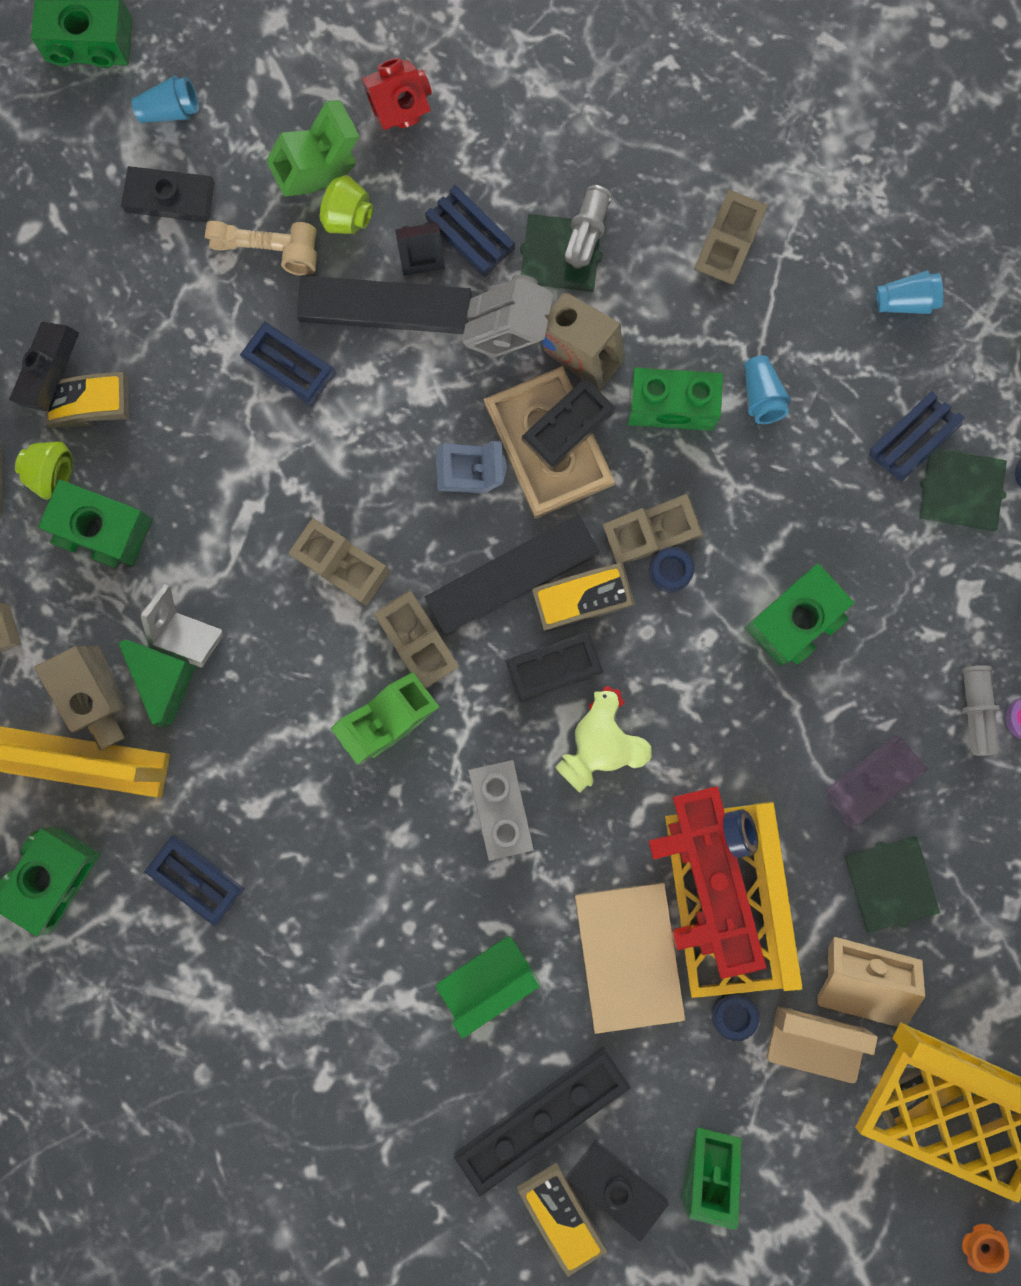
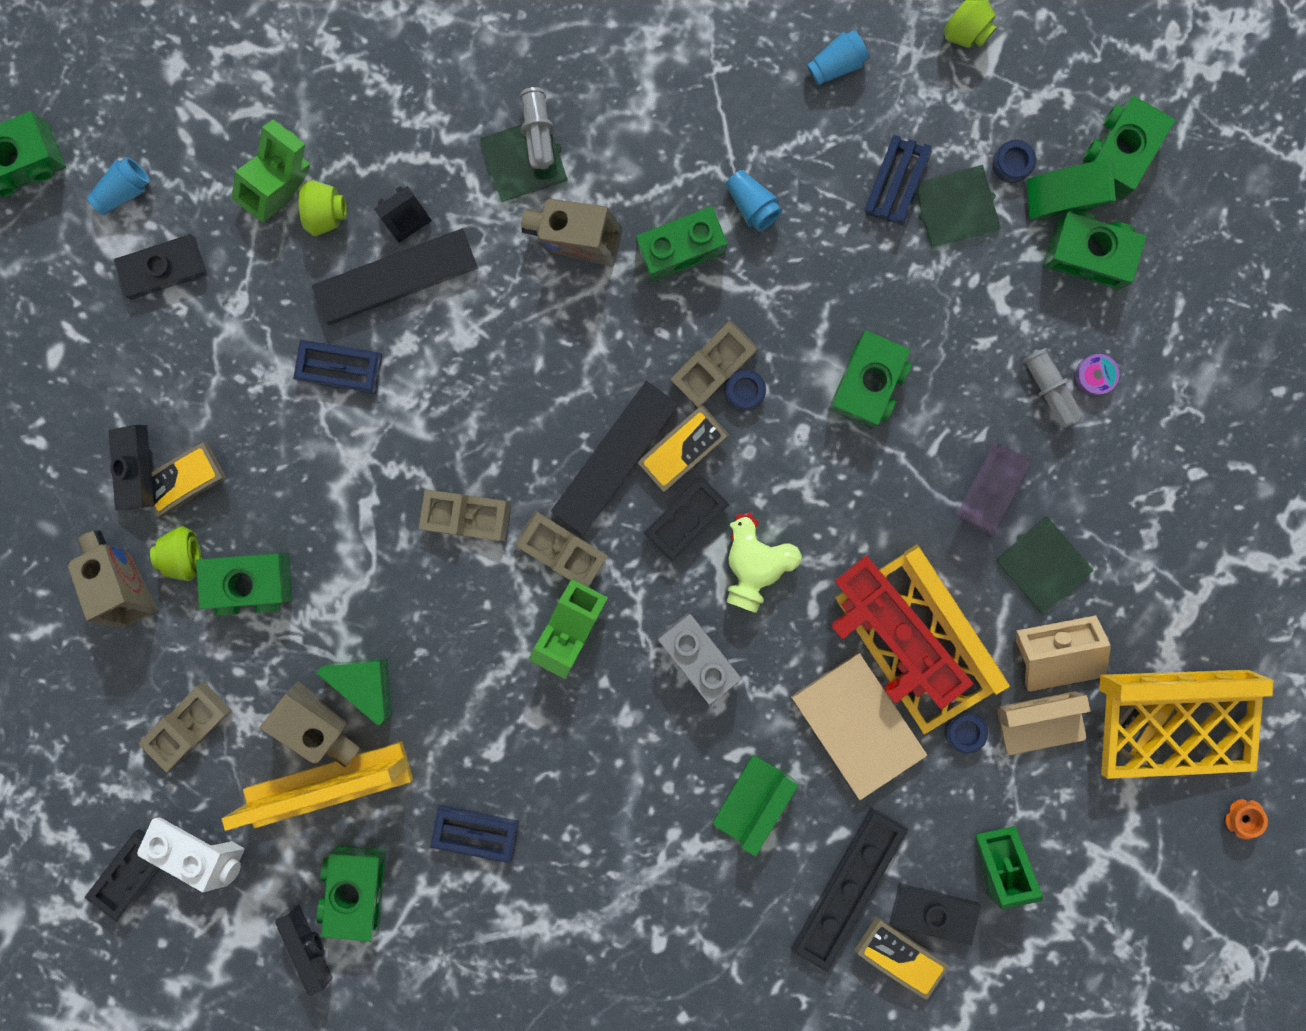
camera: 25 degrees left, 5 degrees up
(176, 633) = (360, 640): light grey bracket -> none
(297, 247) = (296, 262): tan brick -> none
(397, 93) = (316, 86): red brick -> none
(446, 205) = (405, 165): dark blue tile -> none
(470, 467) = (536, 384): sand blue bracket -> none
(508, 317) = (507, 241): light grey brick -> none
(568, 424) = (602, 308): black plate -> none
(576, 476) = (591, 329): tan tile -> none
(731, 237) = (663, 78): dark tan slope -> none
(740, 833) = (903, 585): dark blue tile -> none

